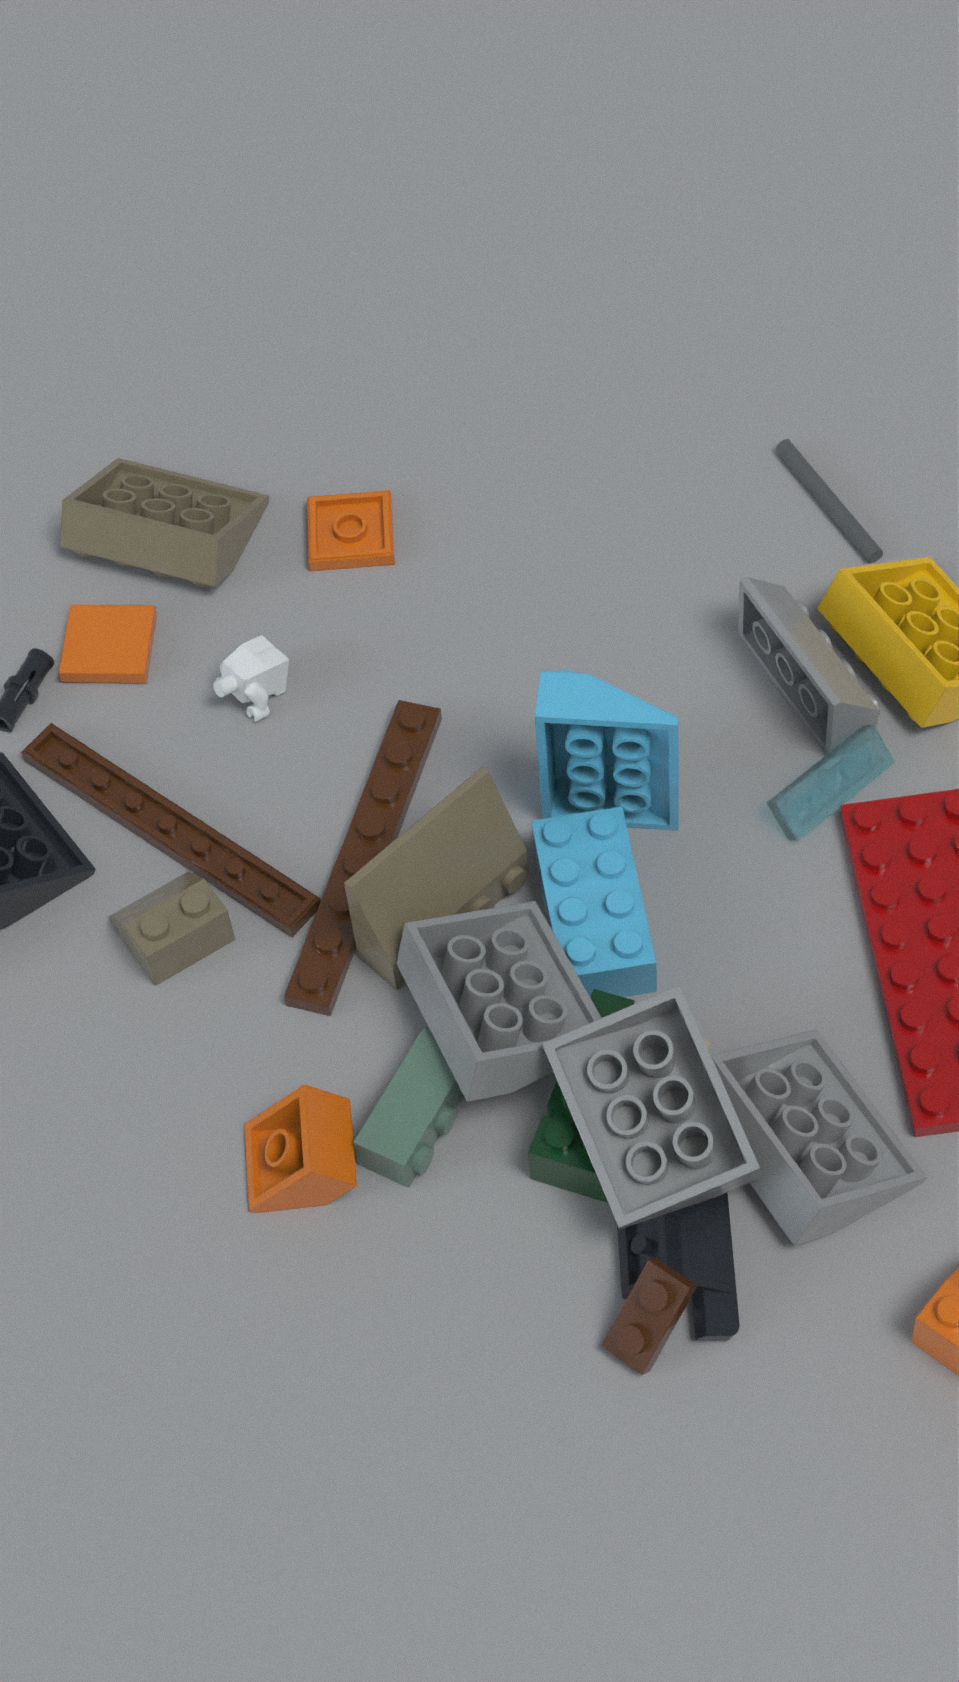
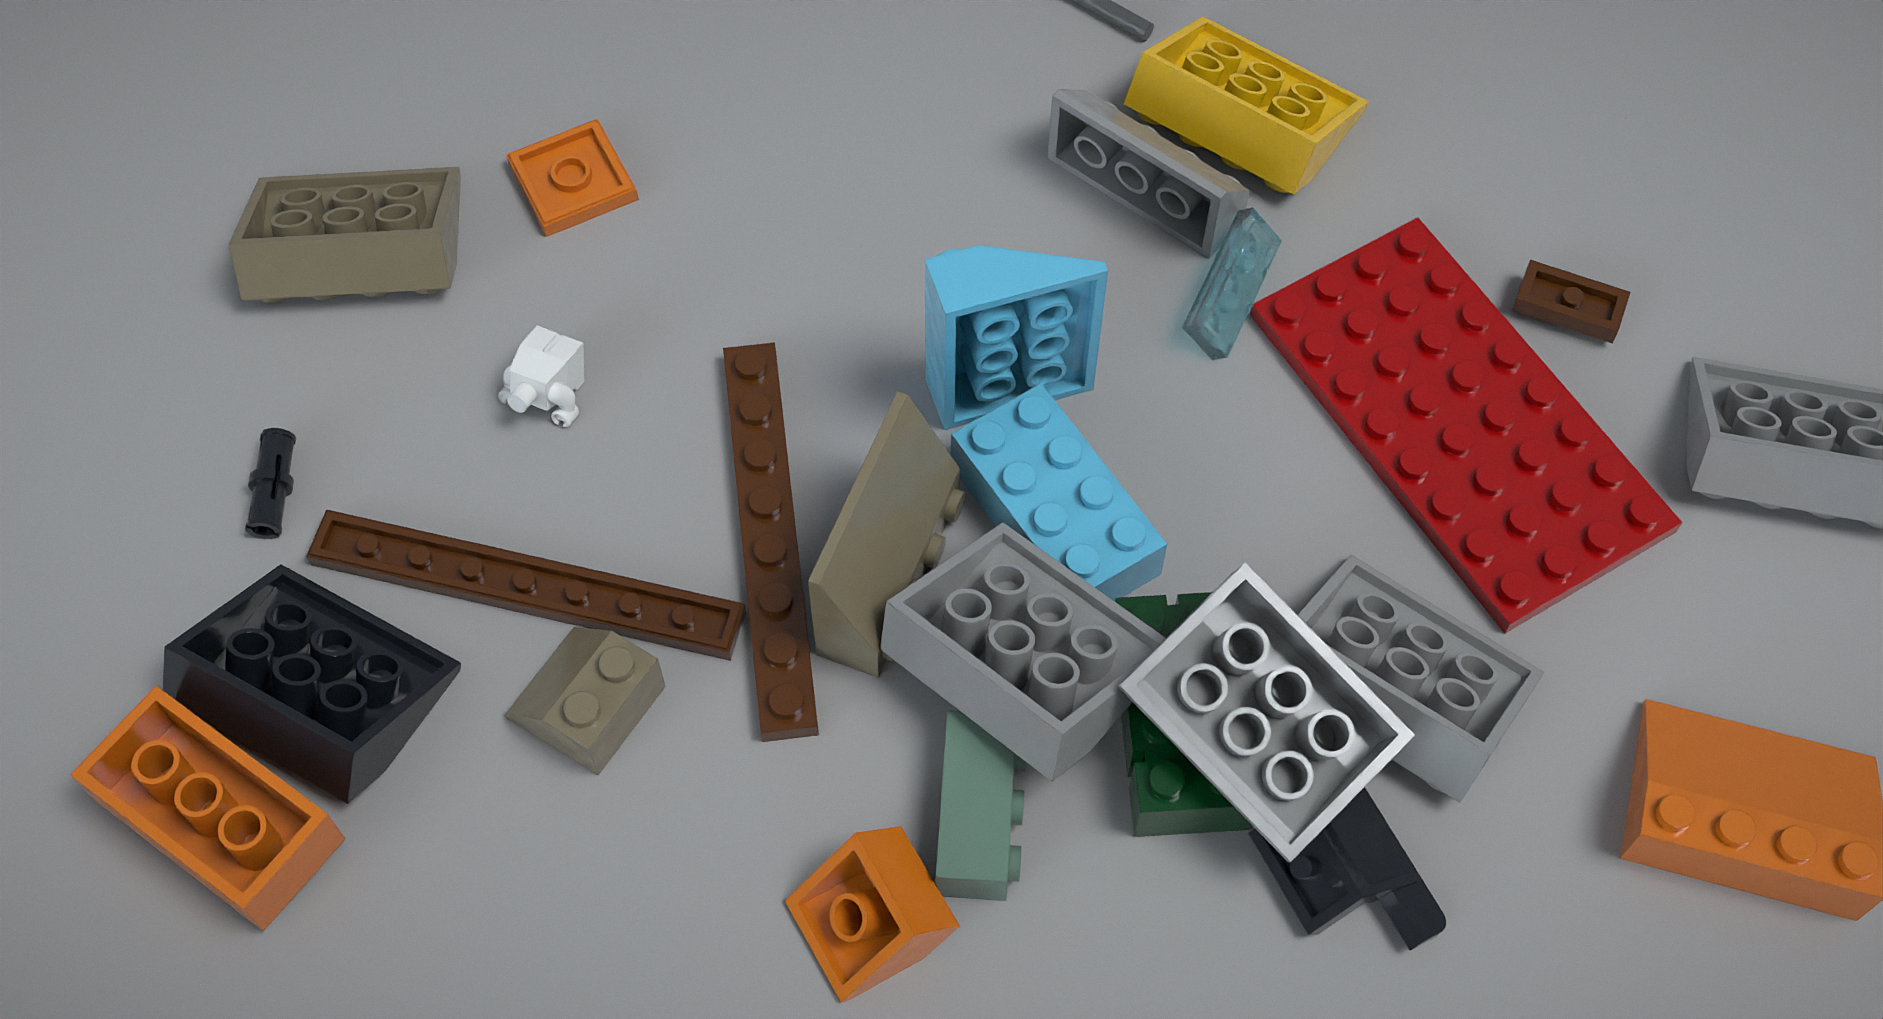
camera: 30 degrees left, 5 degrees up
(108, 643) = (350, 394): orange tile -> none
(649, 1315) = (1357, 946): reddish brown plate -> none

